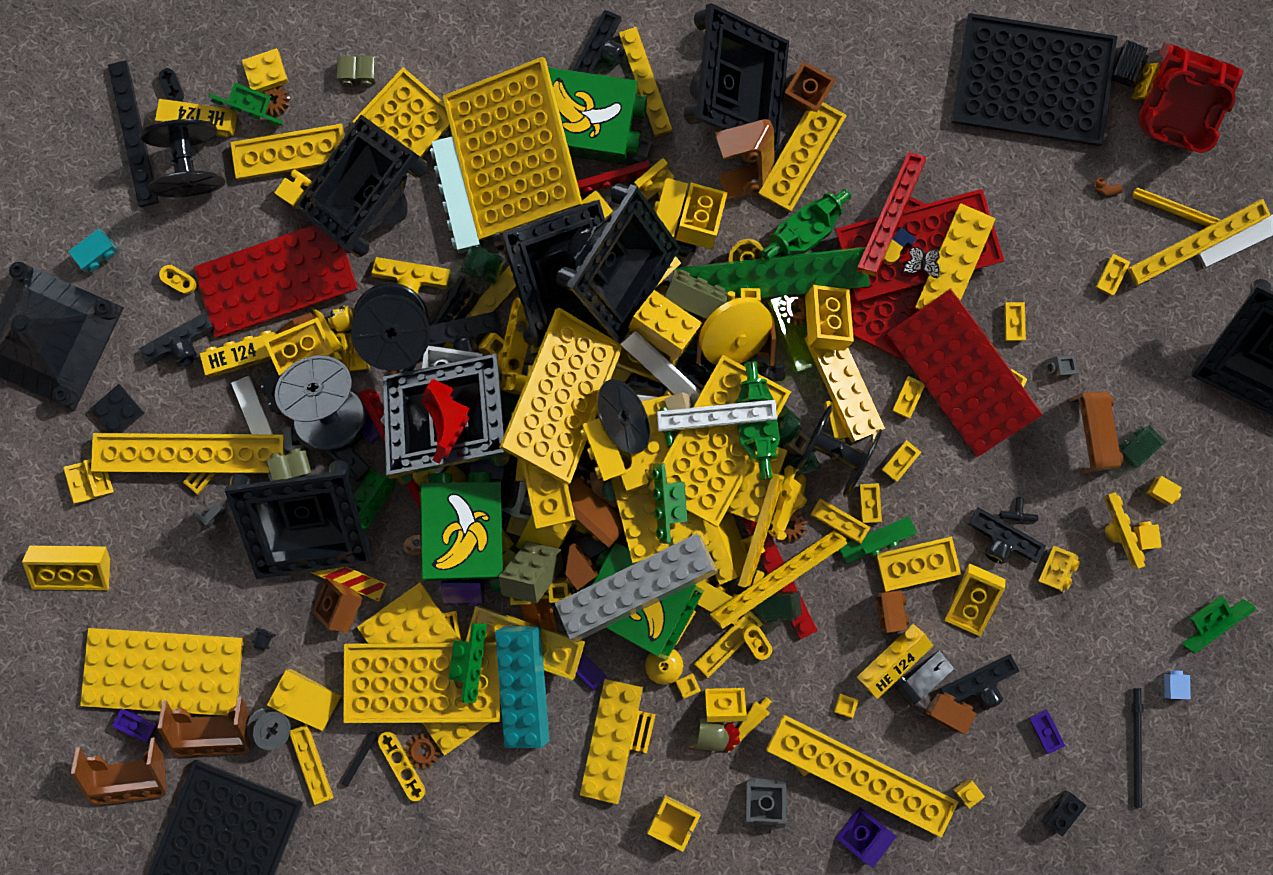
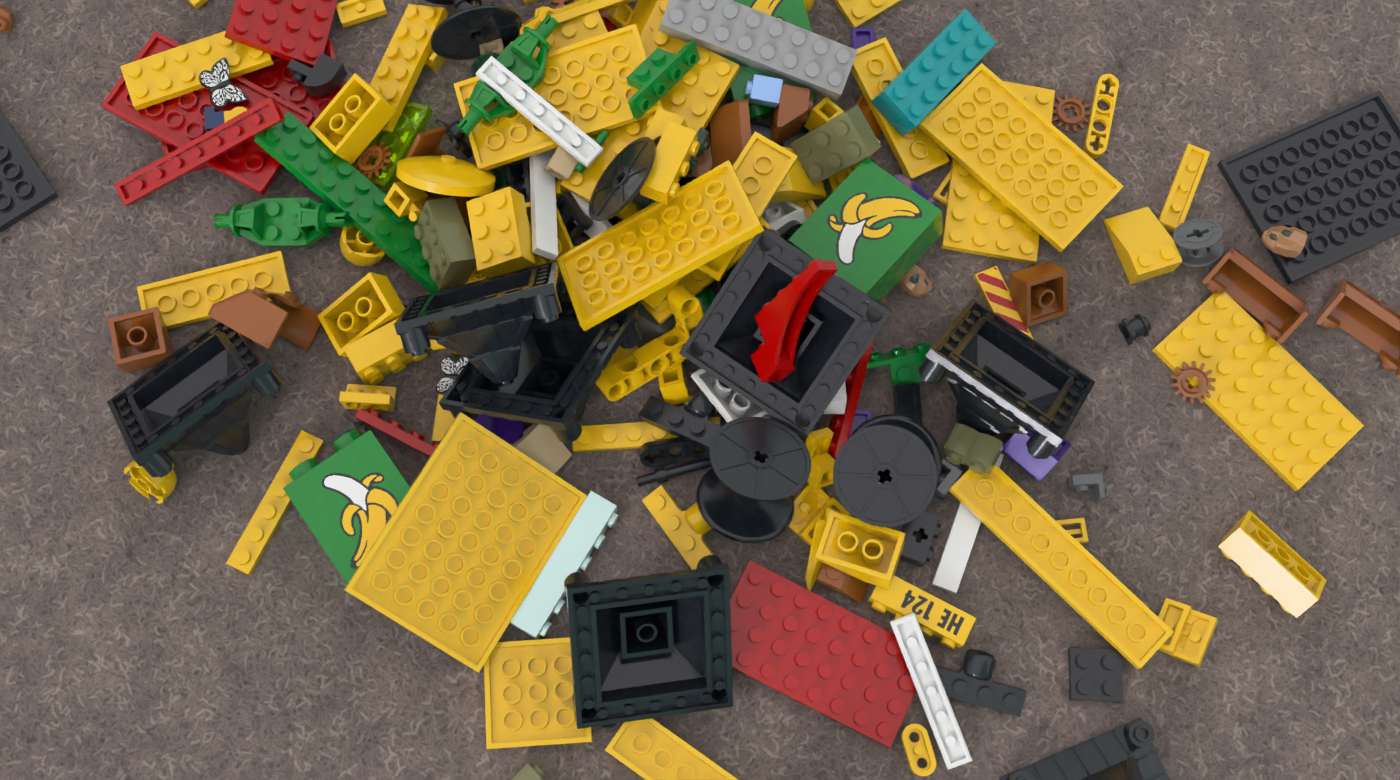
camera: 145 degrees left, 10 degrees down
(134, 725) = (1324, 361): dark purple plate -> none
(197, 314) = (931, 691): none -> white tile
(209, 635) = (1183, 384): none -> dark orange gear
(217, 781) = (1284, 240): none -> medium nougat rock
(291, 191) = (722, 728): yellow brick -> none
(341, 318) = (790, 549): yellow head -> none
(359, 758) = (1133, 155): black bar -> none
(370, 379) = (821, 462): none -> yellow brick
(467, 662) = (966, 130): green bracket -> none
(482, 265) = (606, 467): clear green brick -> none
(600, 45) = (280, 575): black plate -> none
(604, 563) = (764, 90): none -> light blue brick
(877, 330) = (321, 79): none -> black brick

